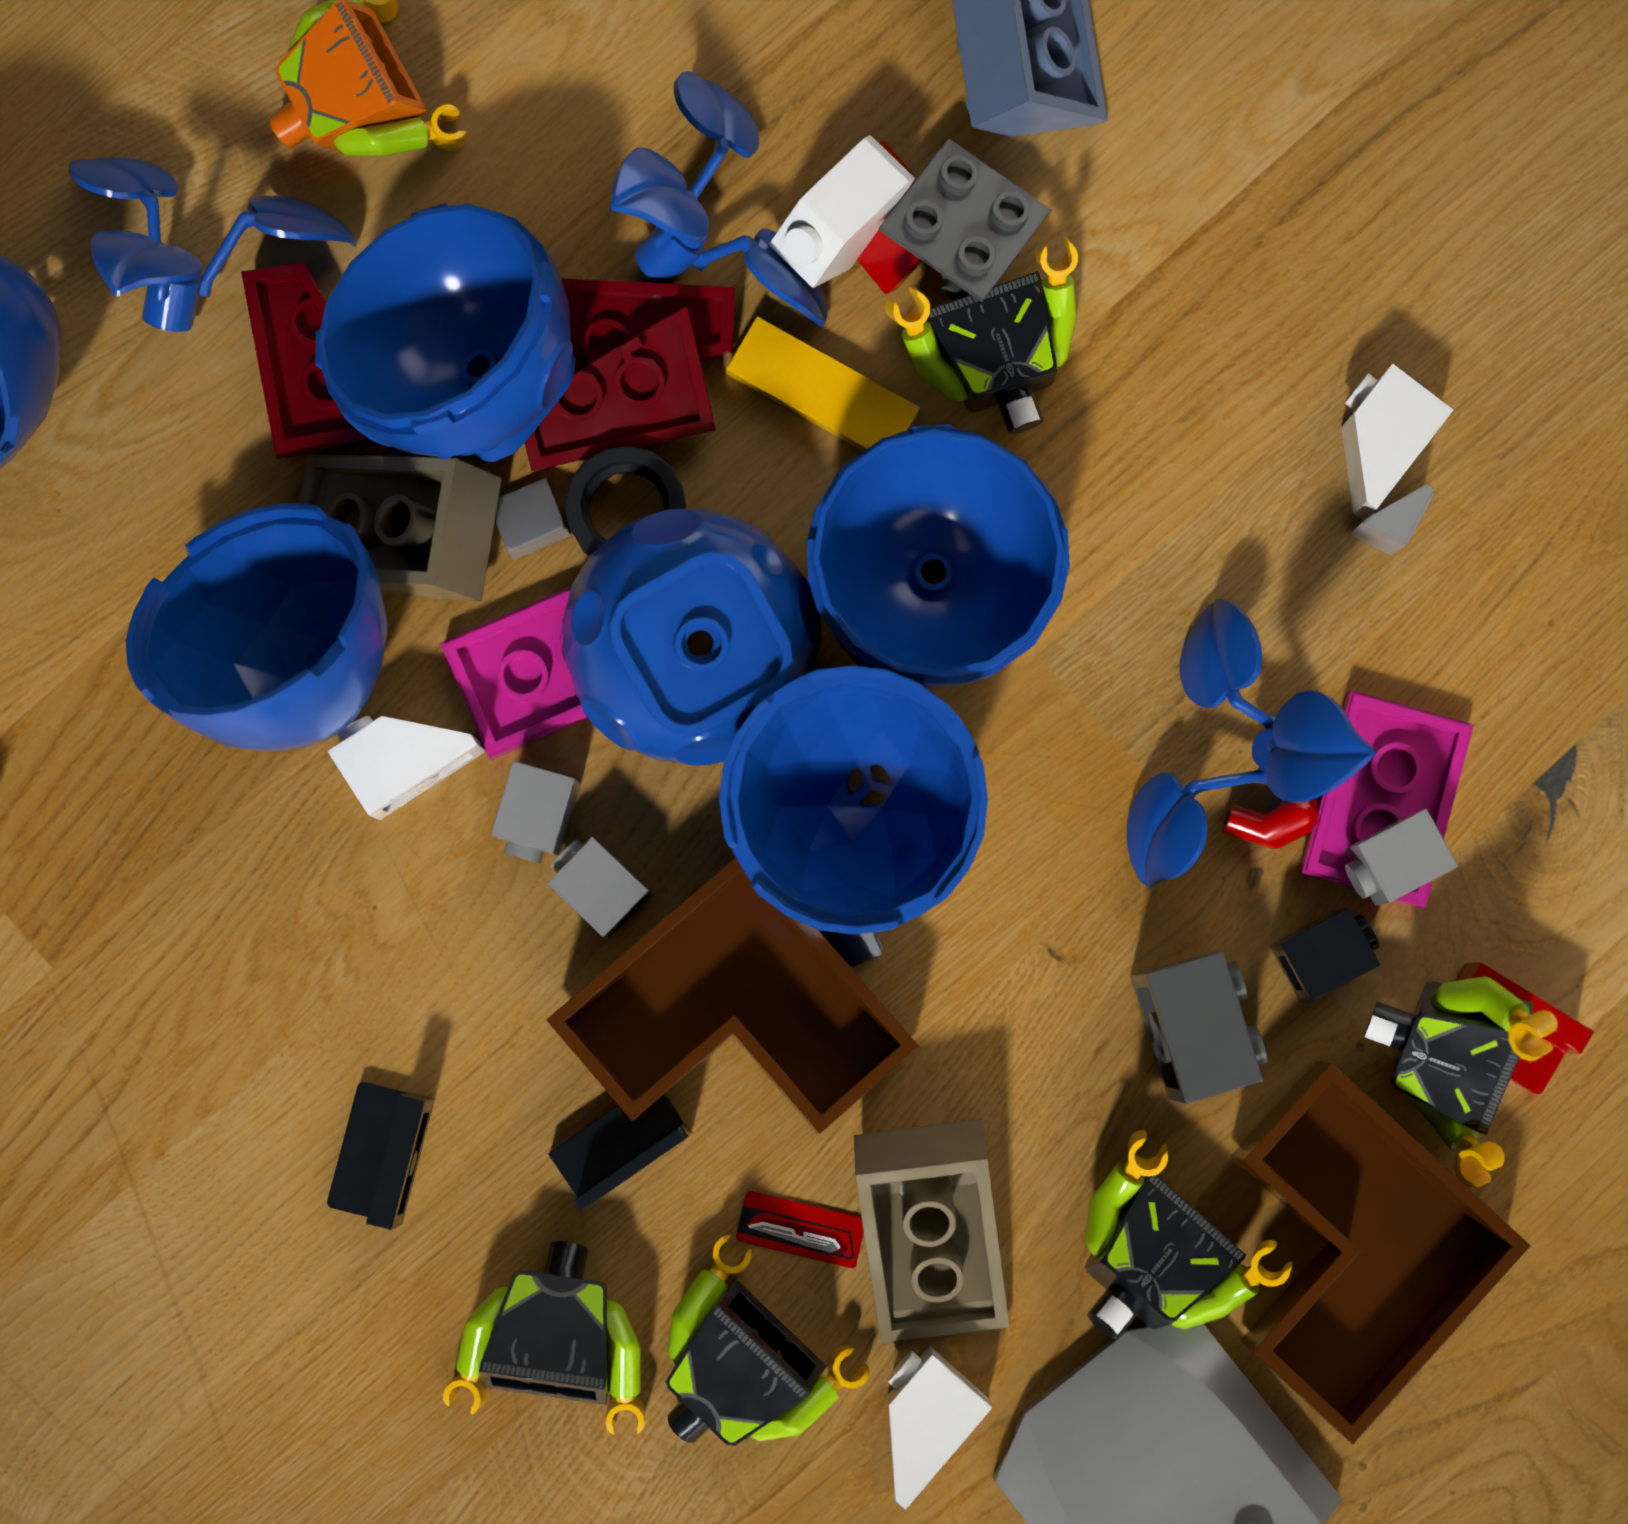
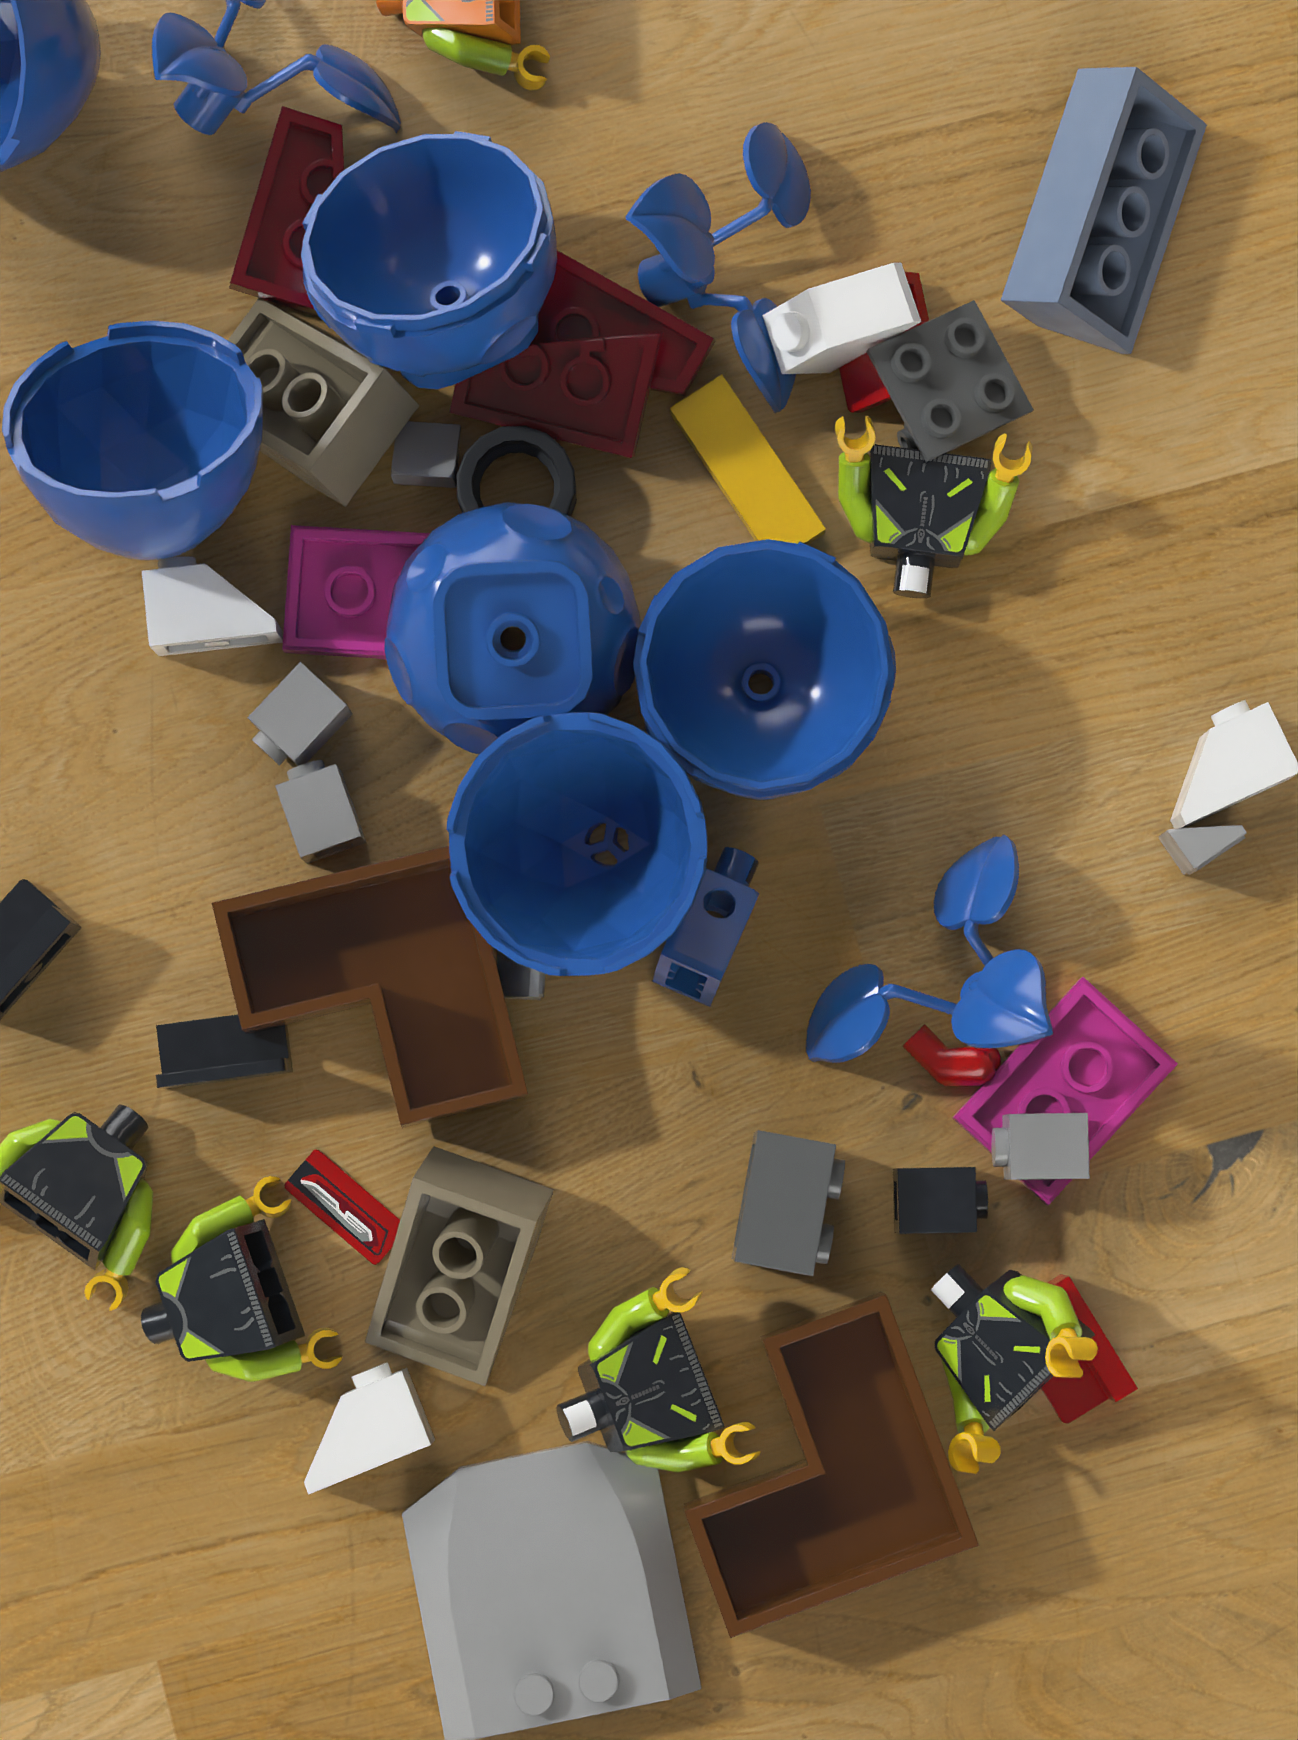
camera: 25 degrees right, 0 degrees up
(1012, 833) = (703, 945): none -> blue torso

